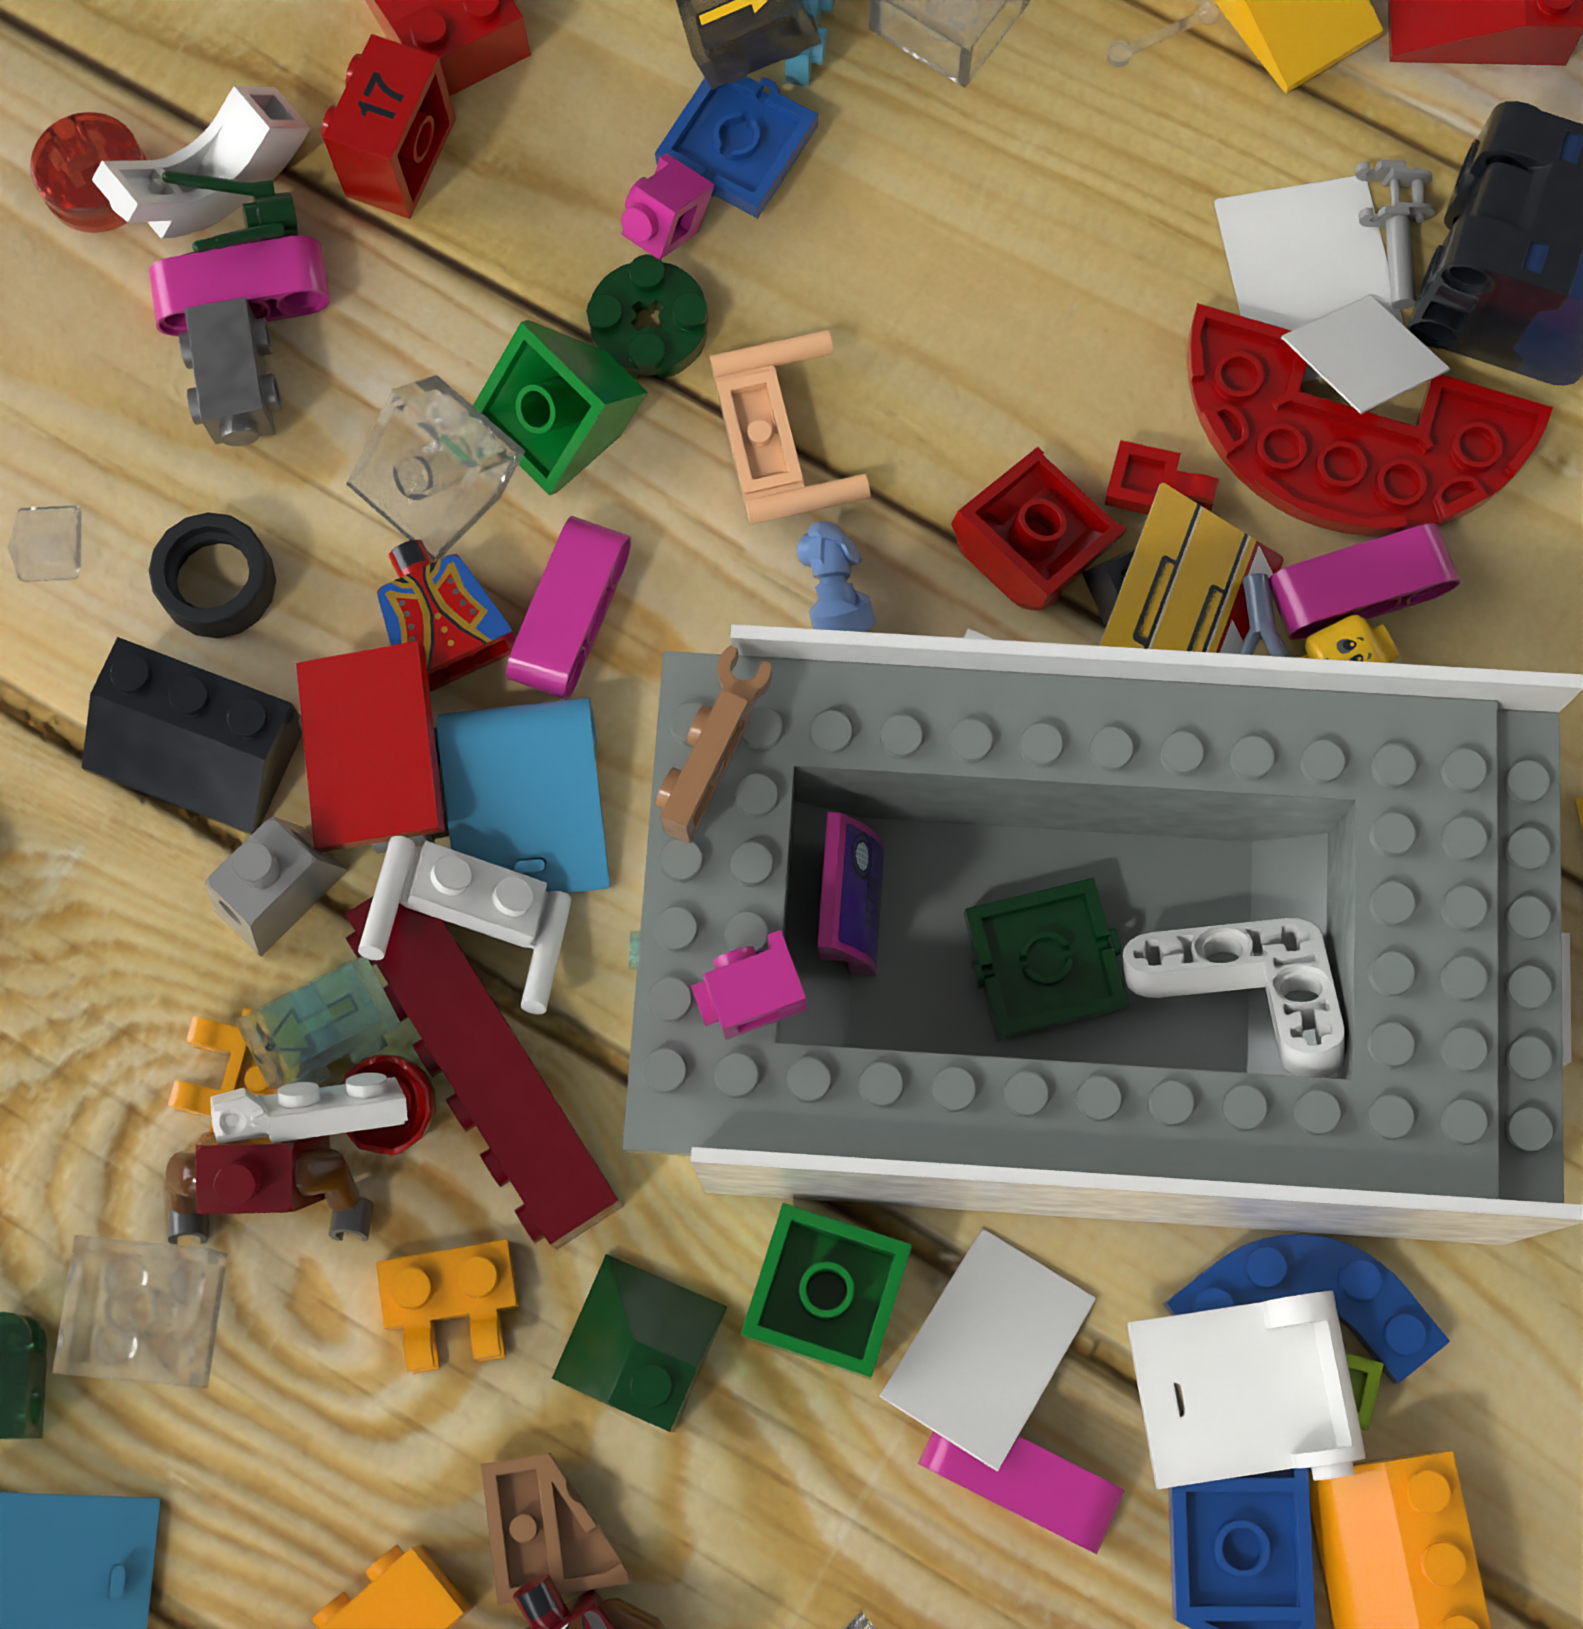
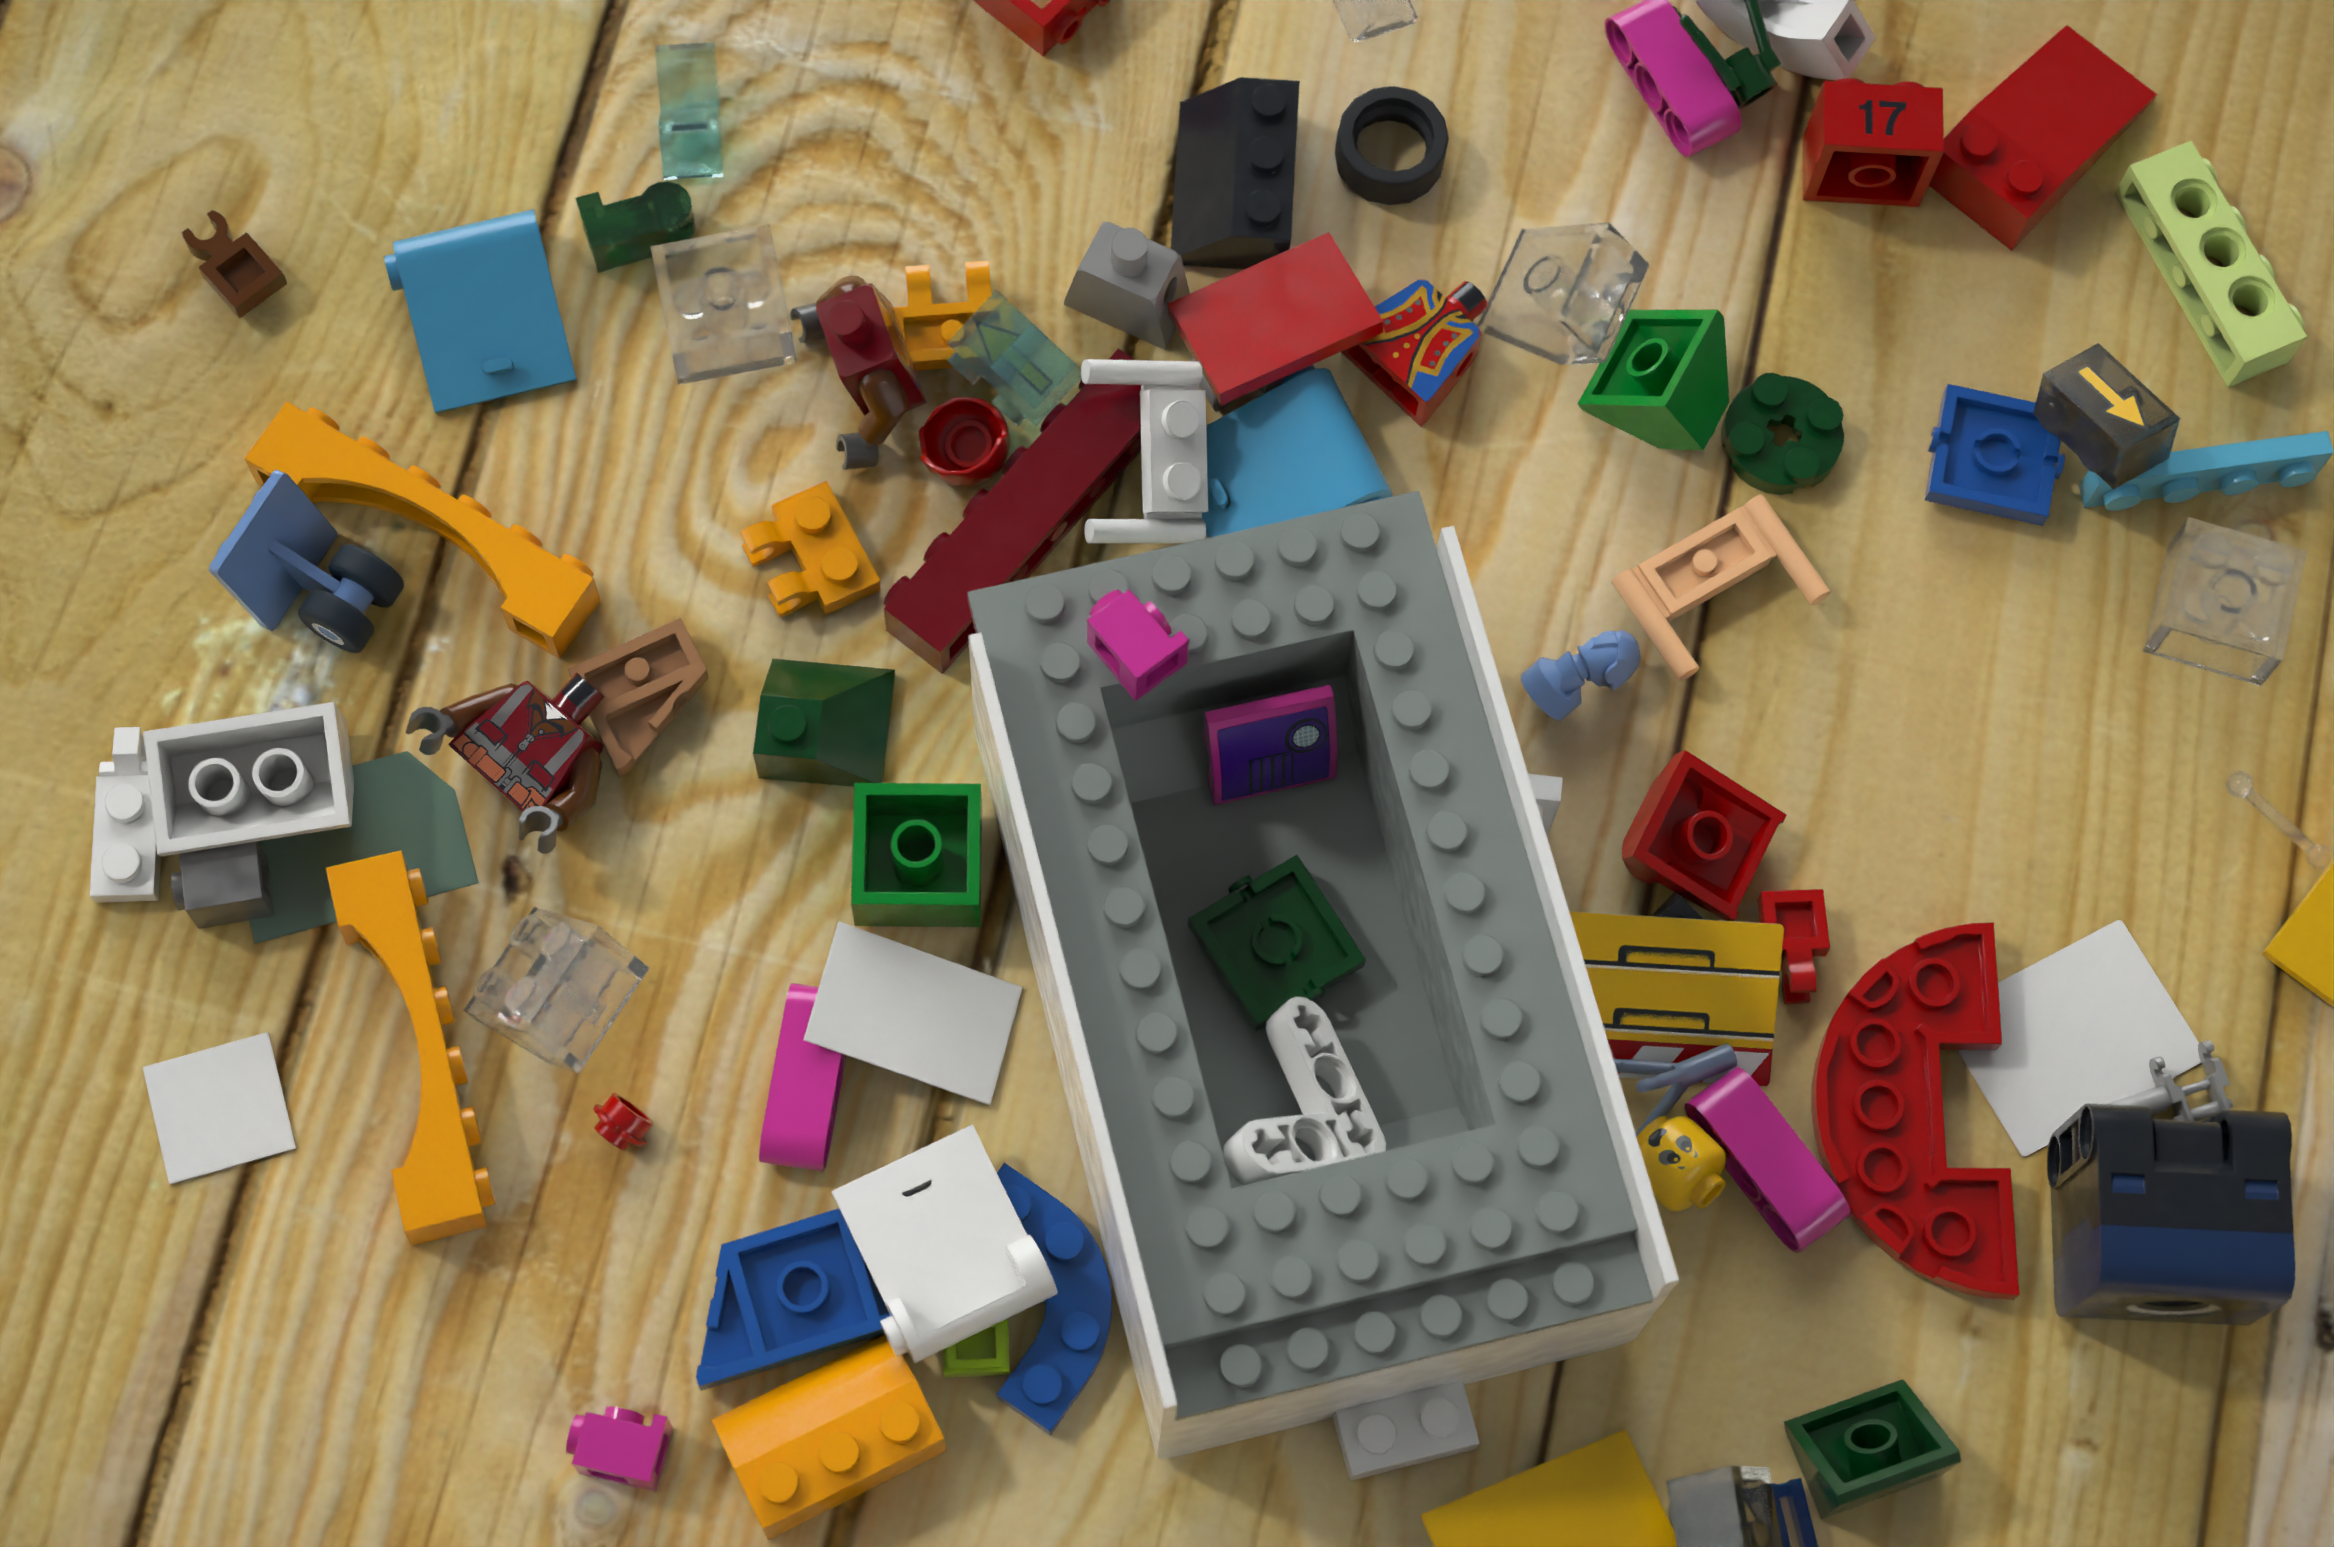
camera: 65 degrees right, 5 degrees down
(227, 357) = (1583, 93): flat silver brick -> none
(309, 1111) = (931, 367): white hinge -> none
(568, 607) = (1472, 450): dark pink beam -> none
(665, 207) = (1892, 409): dark pink brick -> none
(714, 741) = (1337, 546): medium nougat plate -> none
(1365, 353) = (2003, 1095): white piece -> none

